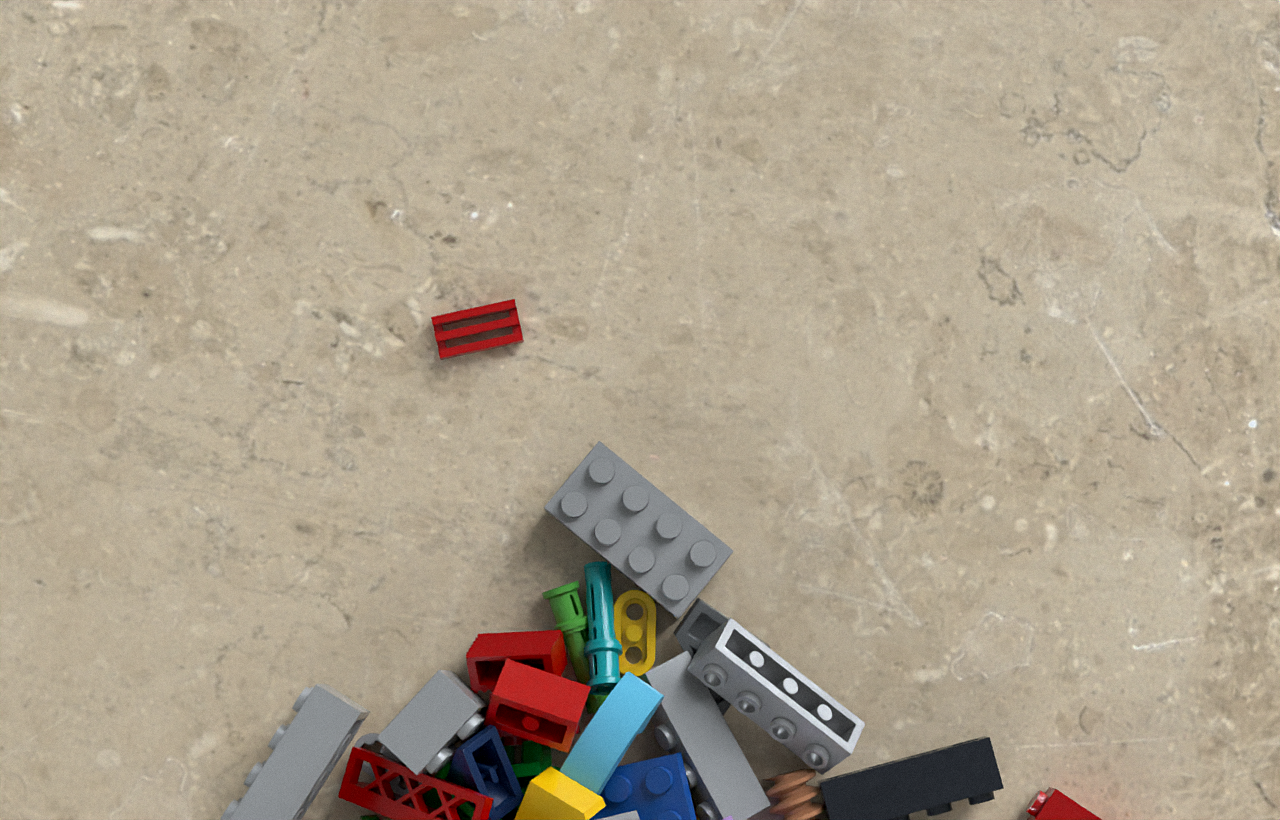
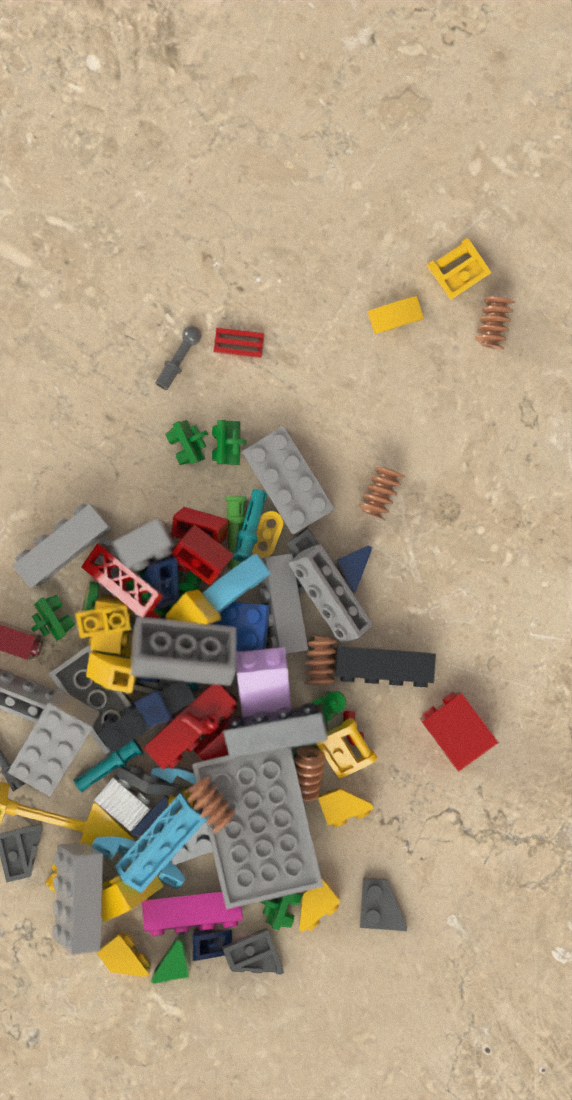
camera: 20 degrees right, 5 degrees up
(394, 346) = (190, 336): none -> dark grey pin
(452, 518) = (191, 441): none -> green hips
(516, 501) = (228, 442): none -> green hips
(721, 195) = (395, 315): none -> yellow slope
(798, 636) = (353, 566): none -> dark blue slope
(800, 496) = (380, 492): none -> nougat piece
(811, 92) = (462, 276): none -> yellow plate
(888, 151) = (494, 322): none -> nougat piece

